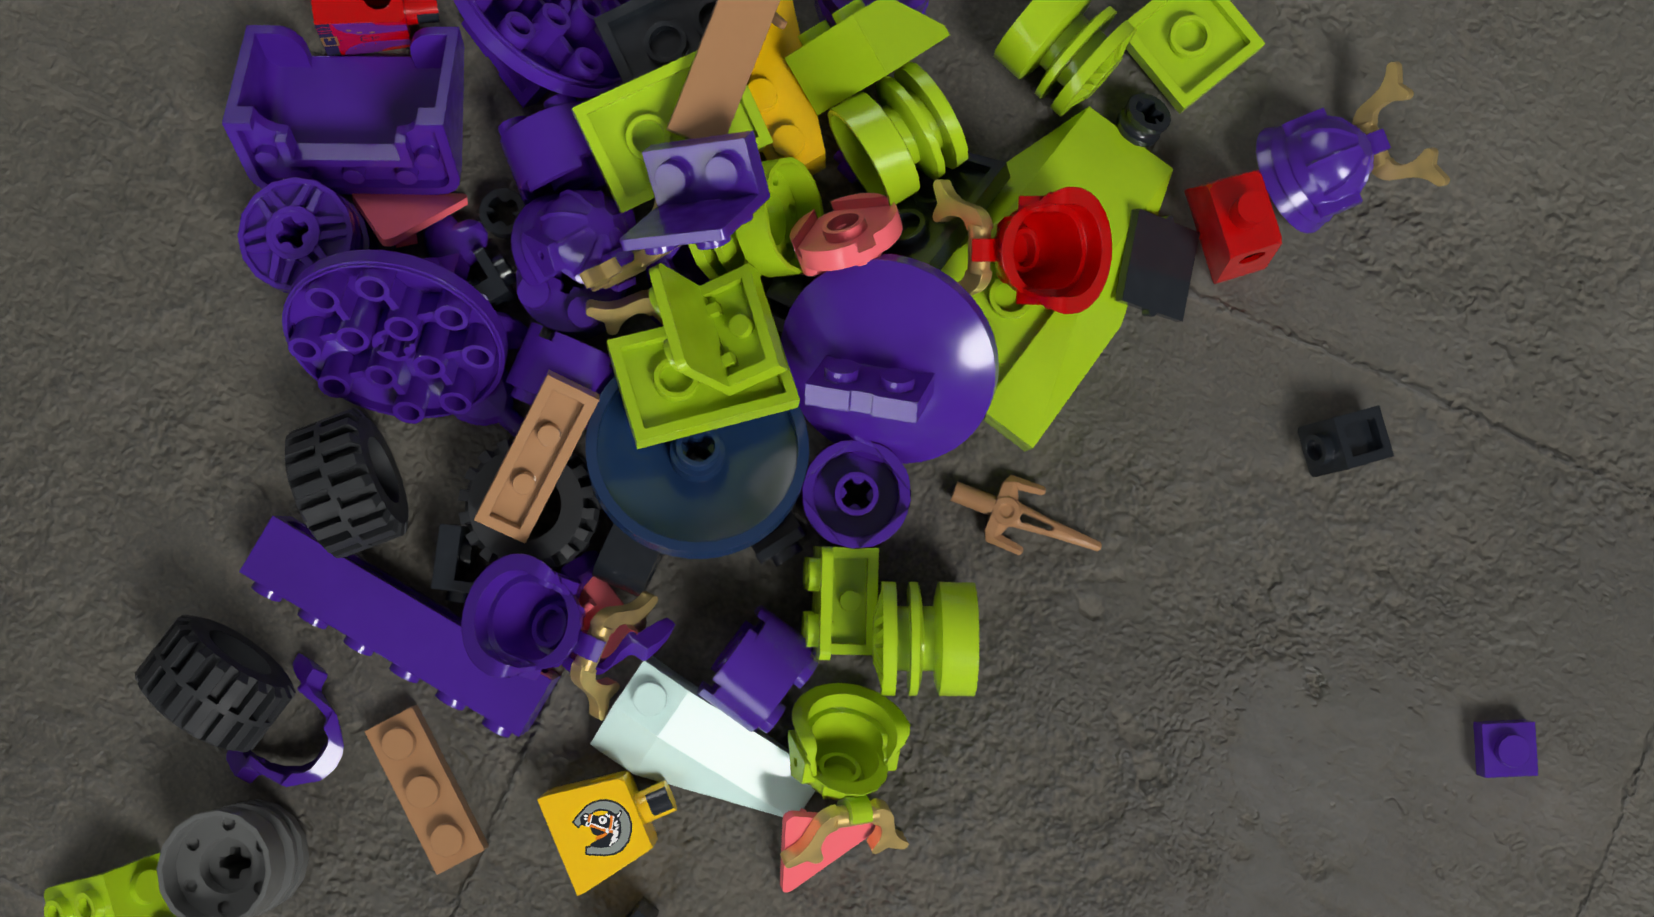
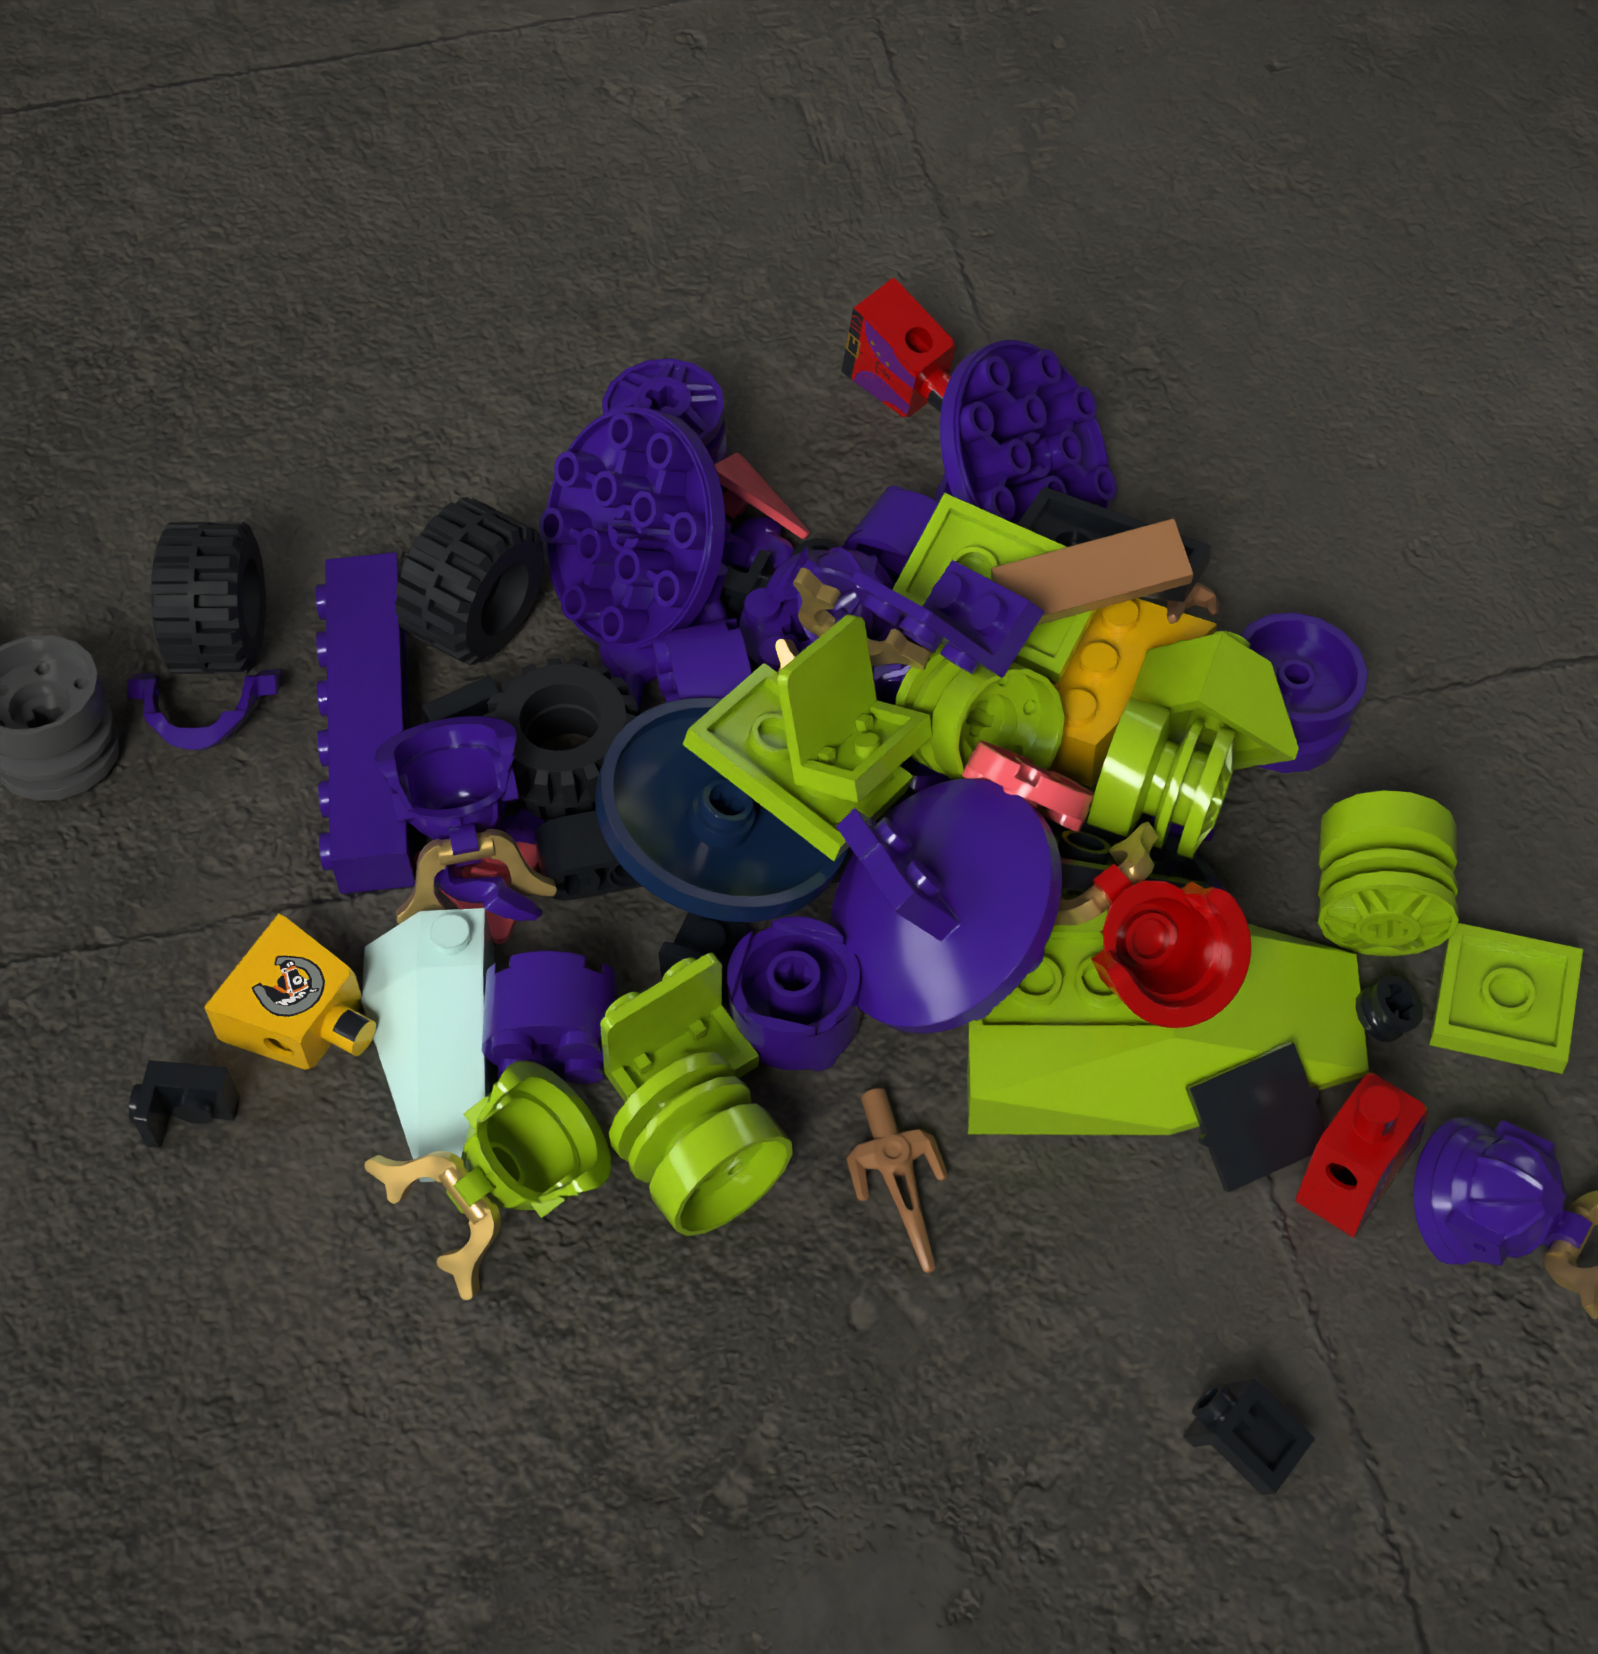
camera: 55 degrees right, 30 degrees down
(349, 118) = (796, 407): dark purple windscreen -> none
(427, 789) = (220, 843): medium nougat plate -> none
(537, 456) = (611, 683): medium nougat plate -> none
(833, 847) = (421, 1219): coral piece -> none

